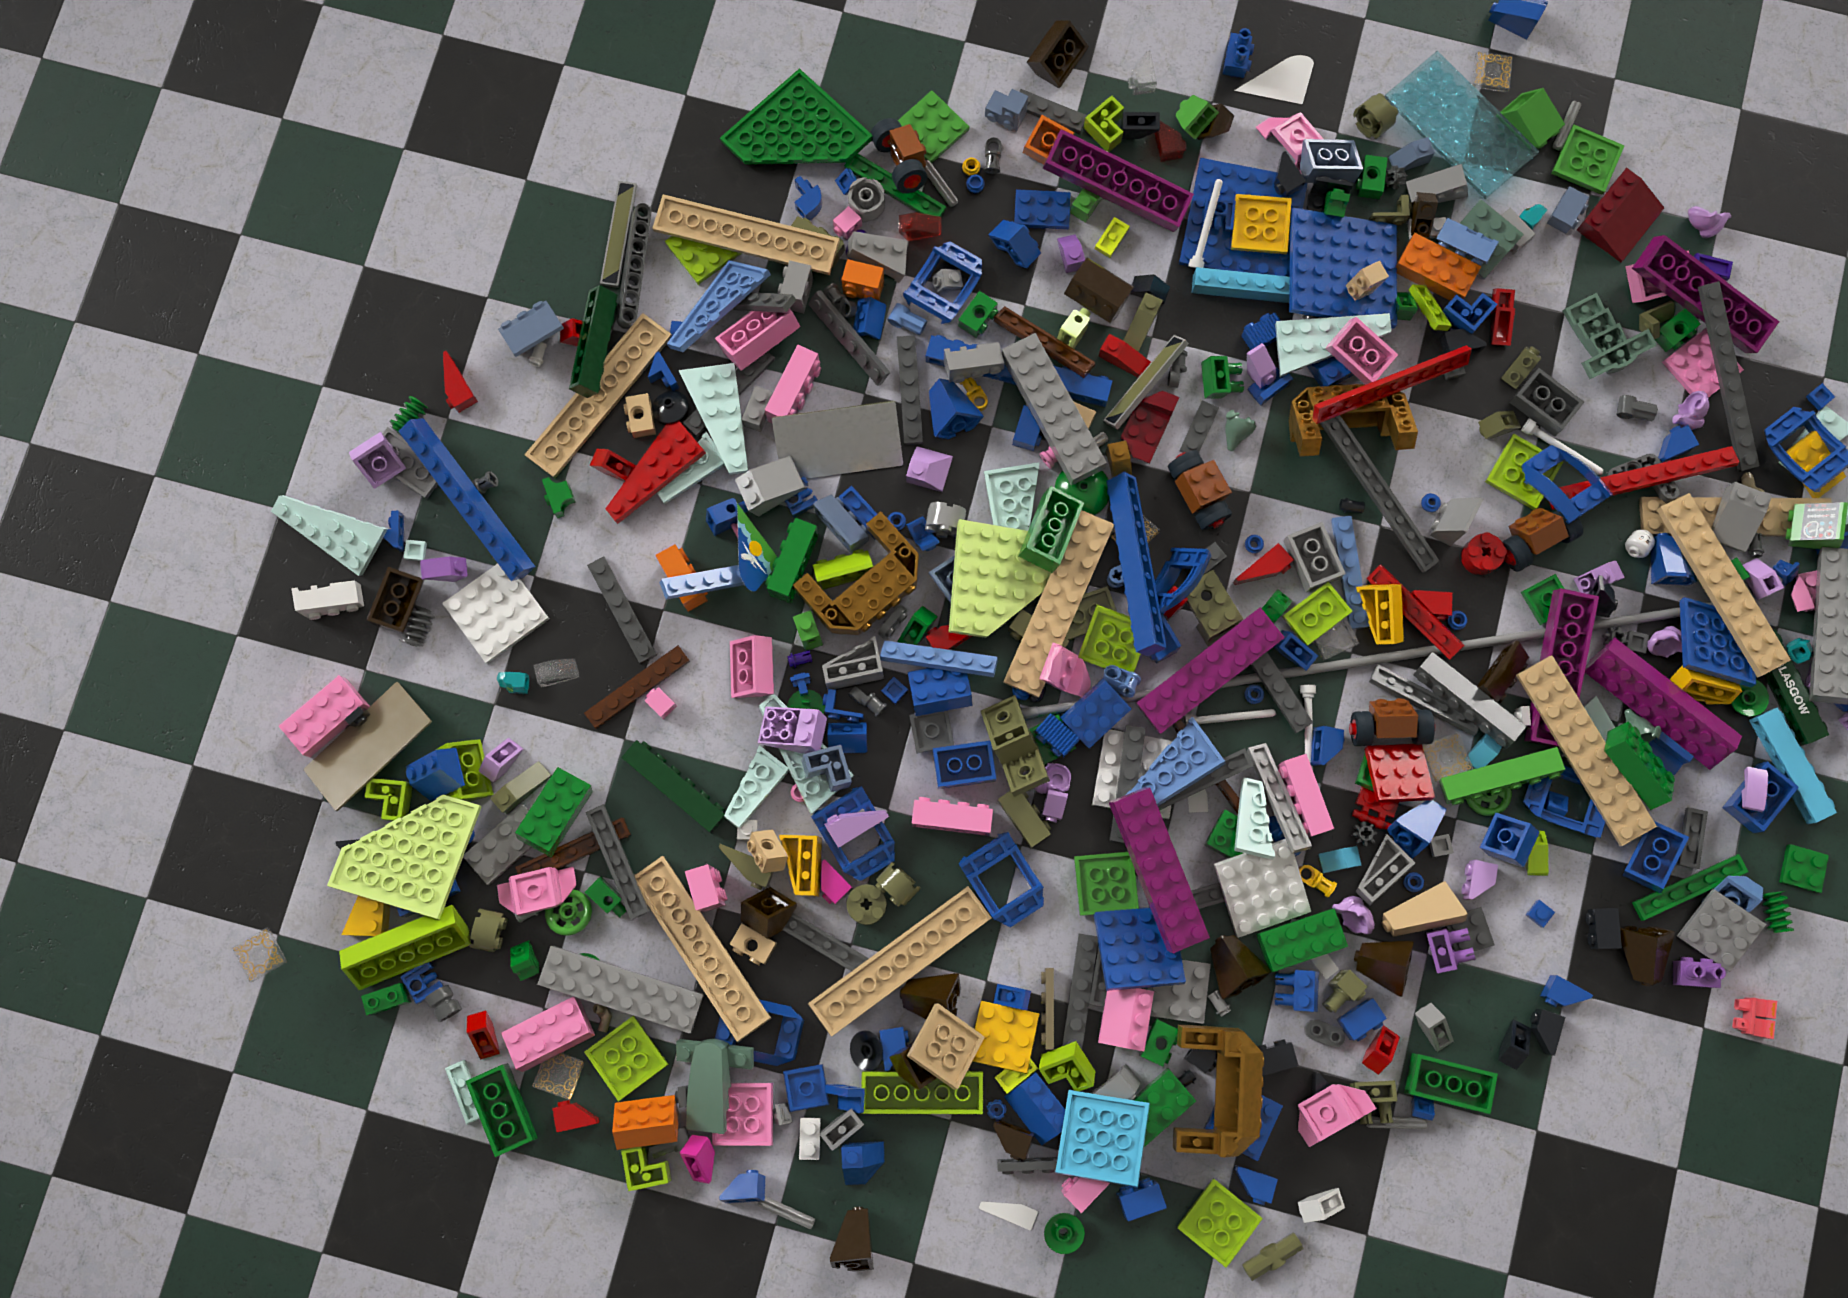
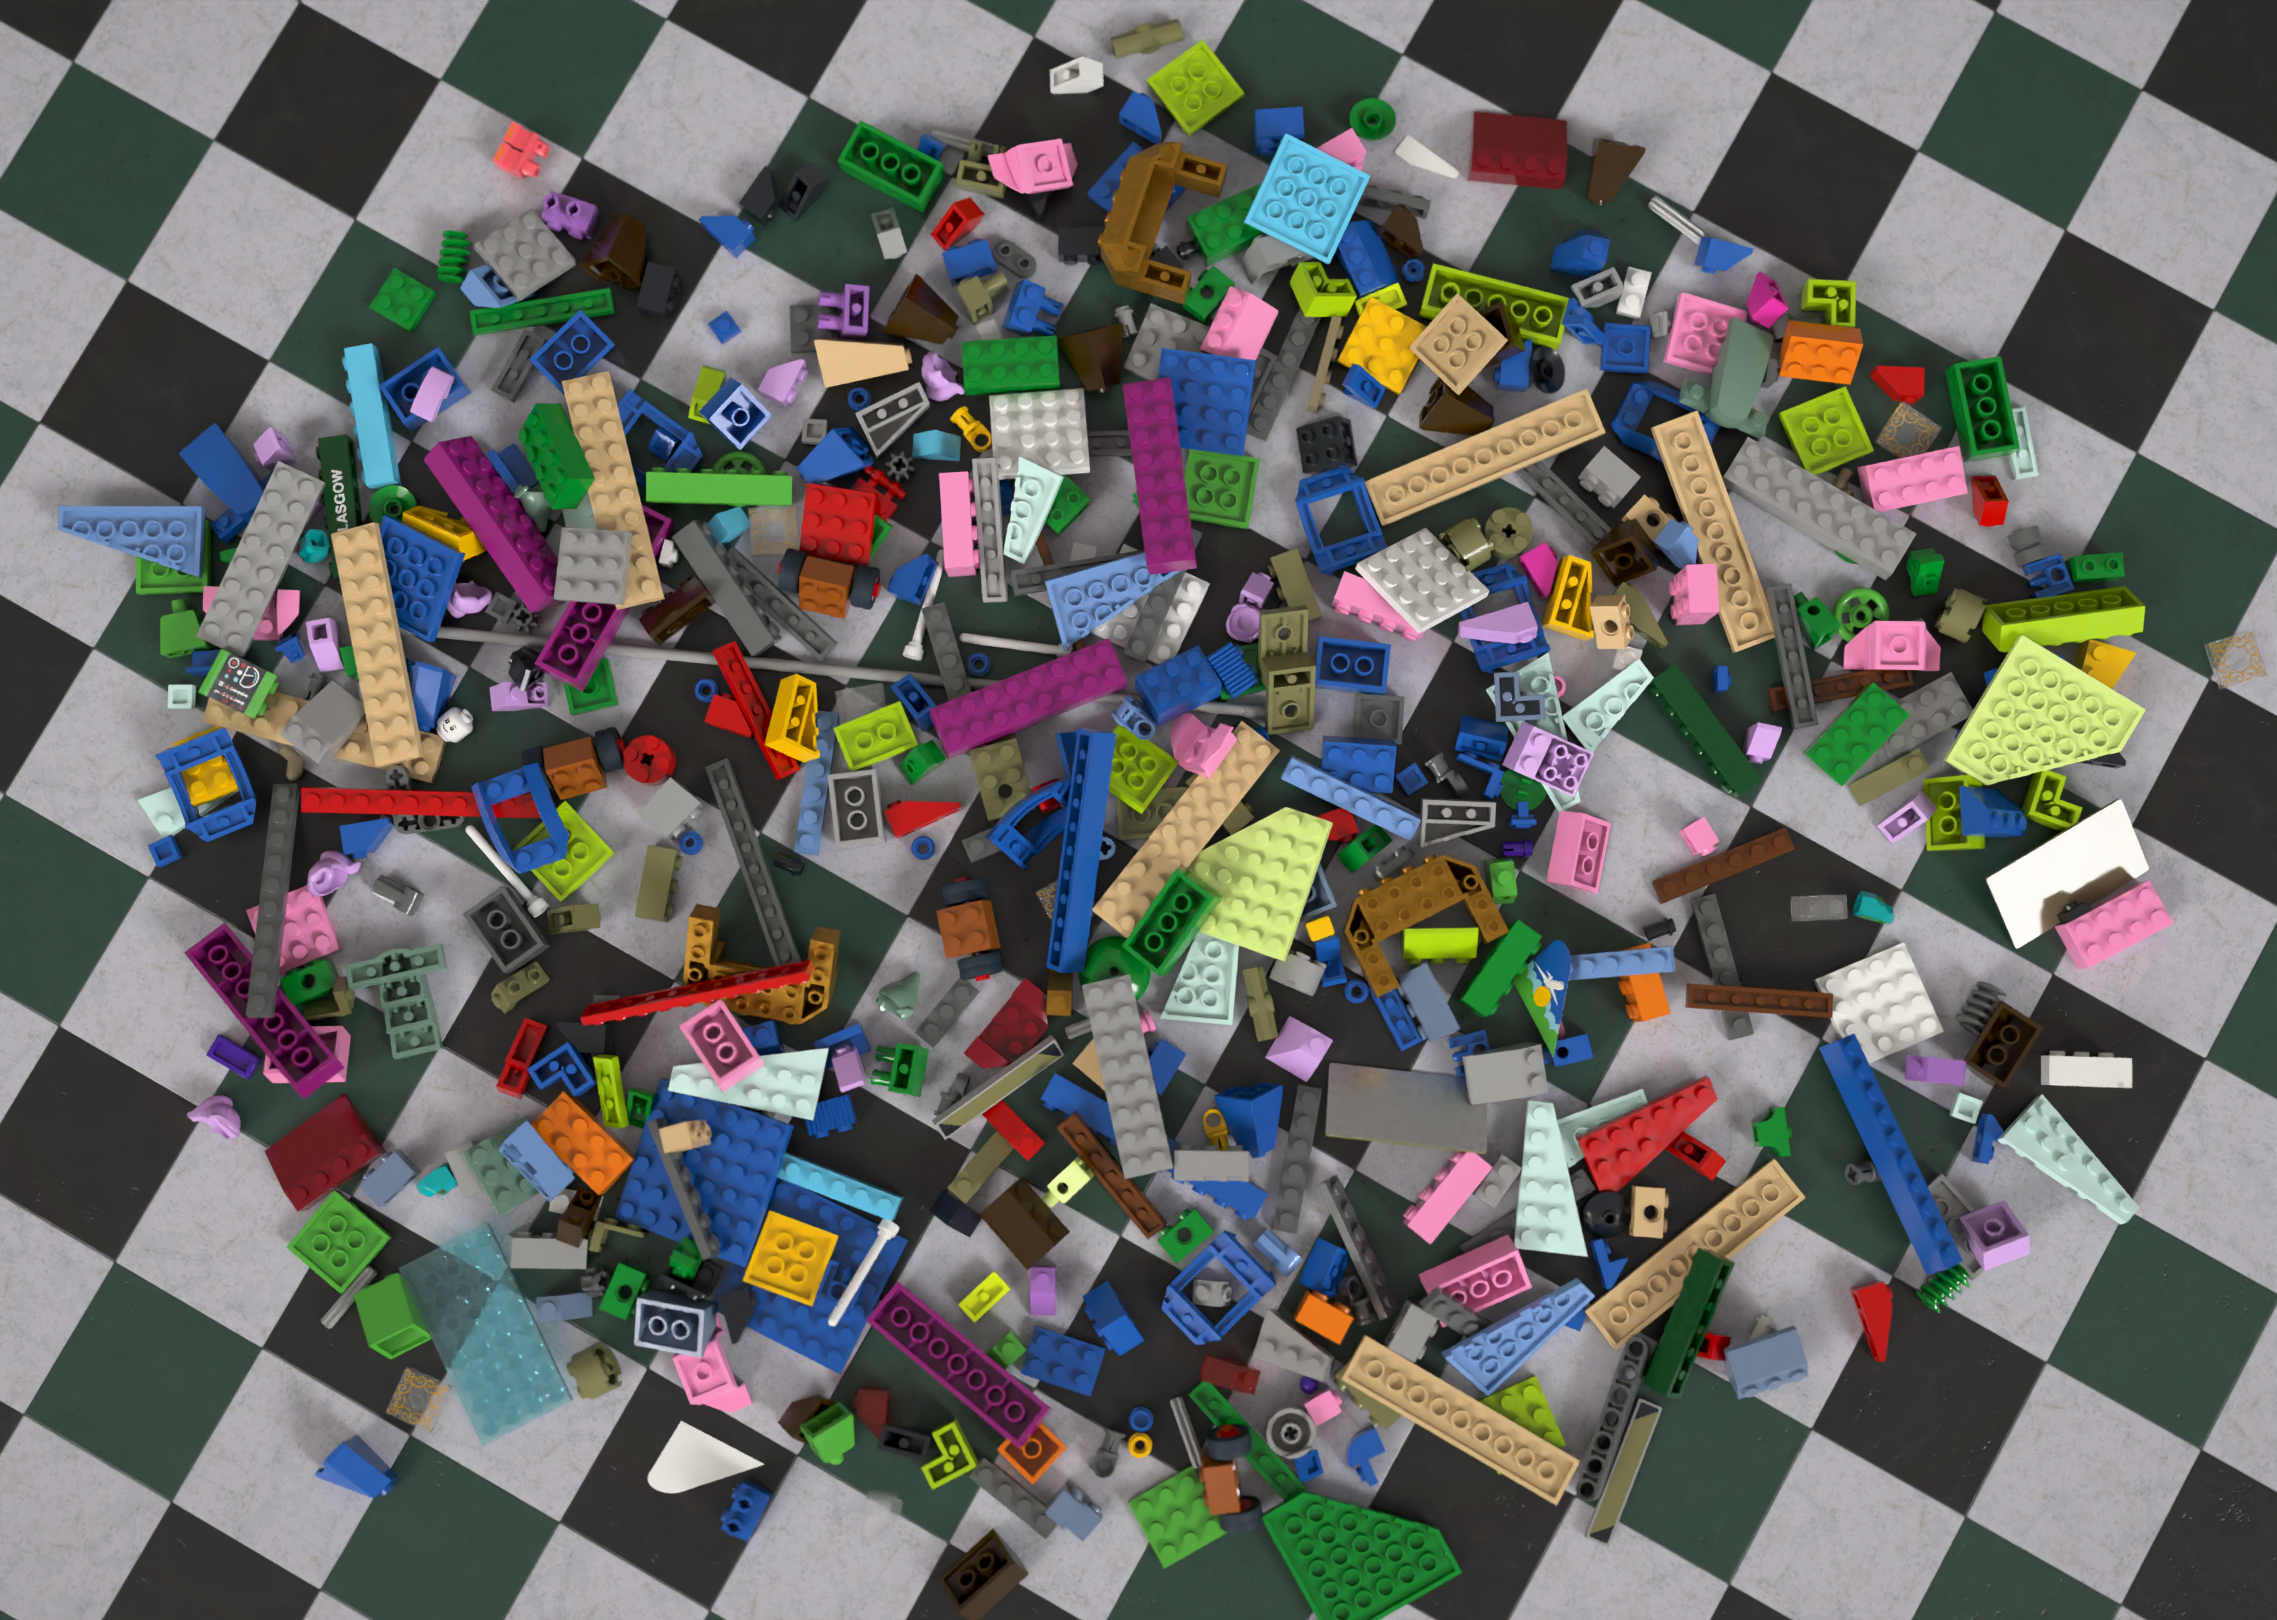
camera: 165 degrees left, 5 degrees up
(588, 587) = (1759, 1000): none -> reddish brown plate
(628, 787) = (1760, 742): none -> lavender slope
(668, 831) = (1721, 679): none -> blue plate
(675, 625) = (1660, 929): none -> black pin
(727, 928) = (1678, 543): none -> medium blue slope
(796, 970) = (1608, 477): none -> light grey brick
(926, 843) = (1422, 580): none -> white plate
(935, 1240) = (1518, 150): none -> dark red slope
(937, 554) = (1319, 928): none -> yellow slope
(966, 492) = (1260, 1003): none -> olive piece
(1028, 941) = (1326, 444): none -> black bracket
(1350, 242) = (688, 1196): none -> dark grey plate
(1445, 465) = (658, 884): none -> olive brick
(1581, 682) = (593, 566): none -> light grey plate

